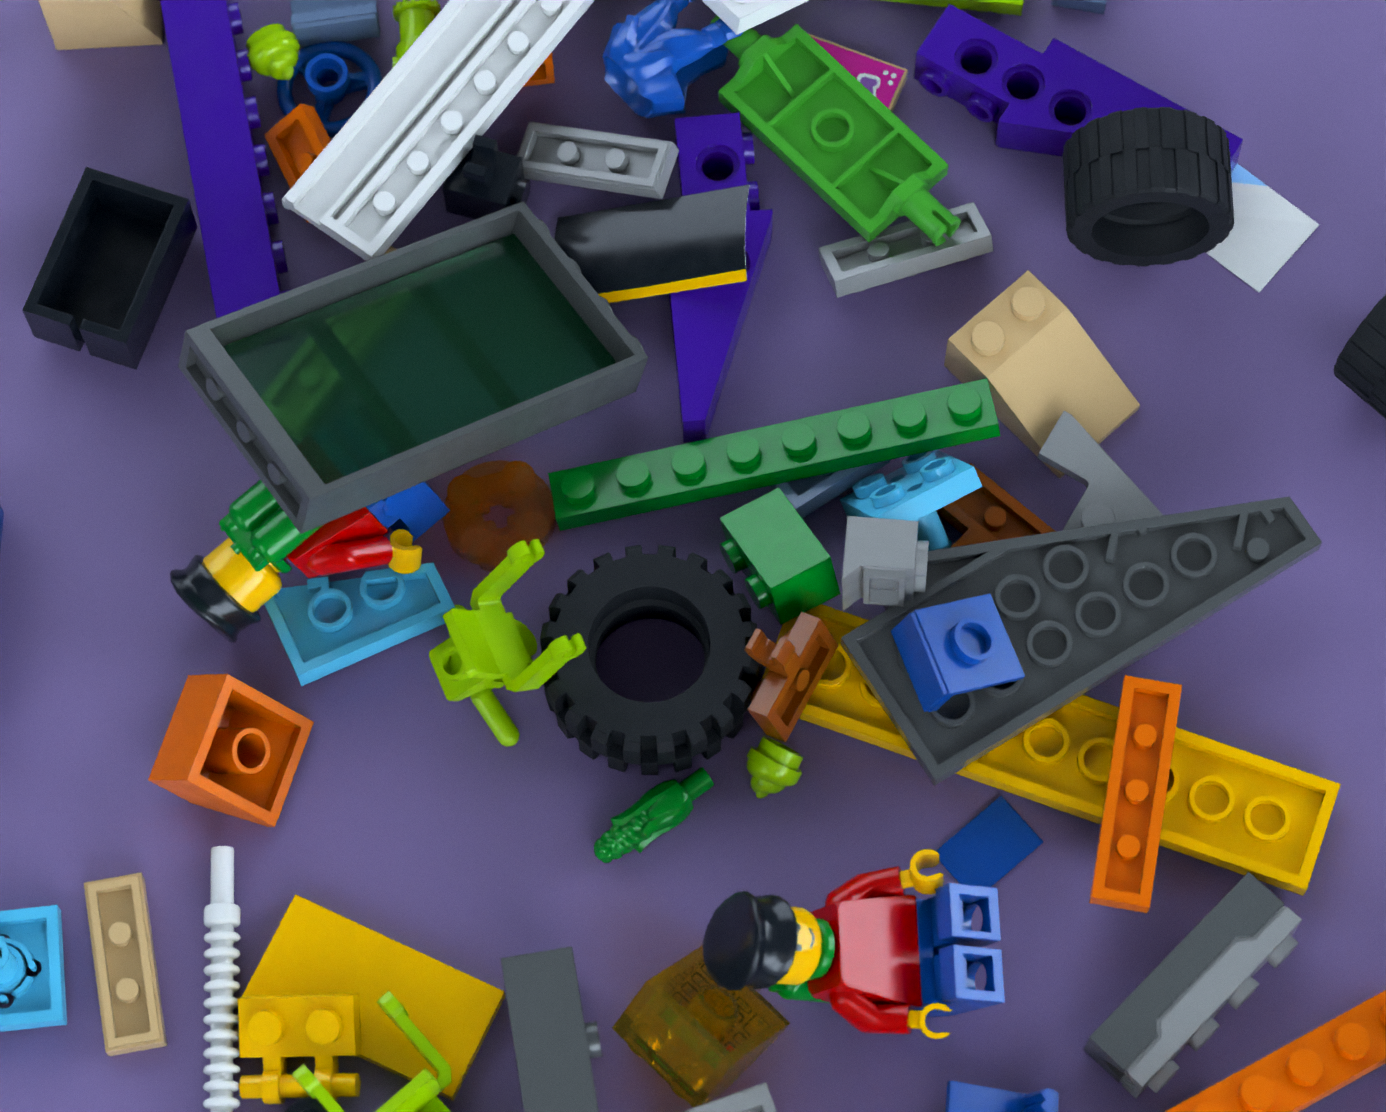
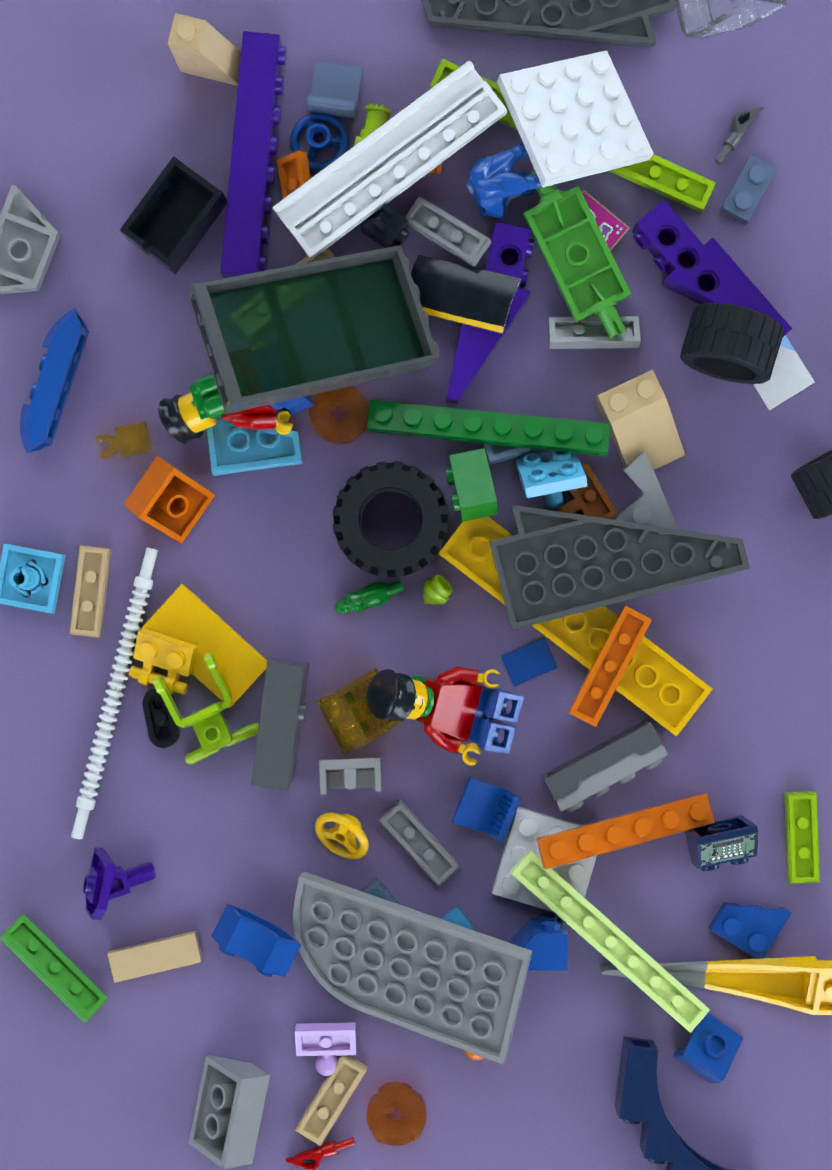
camera: 15 degrees right, 20 degrees up
(128, 671) = (130, 441): none -> clear yellow plate
(273, 52) = (294, 113): lime plate -> none
(496, 650) = (312, 493): lime piece -> none
(793, 673) = (457, 552): dark orange plate -> none
(883, 561) = (521, 517): light grey window -> none
(956, 649) = (545, 569): blue piece -> none

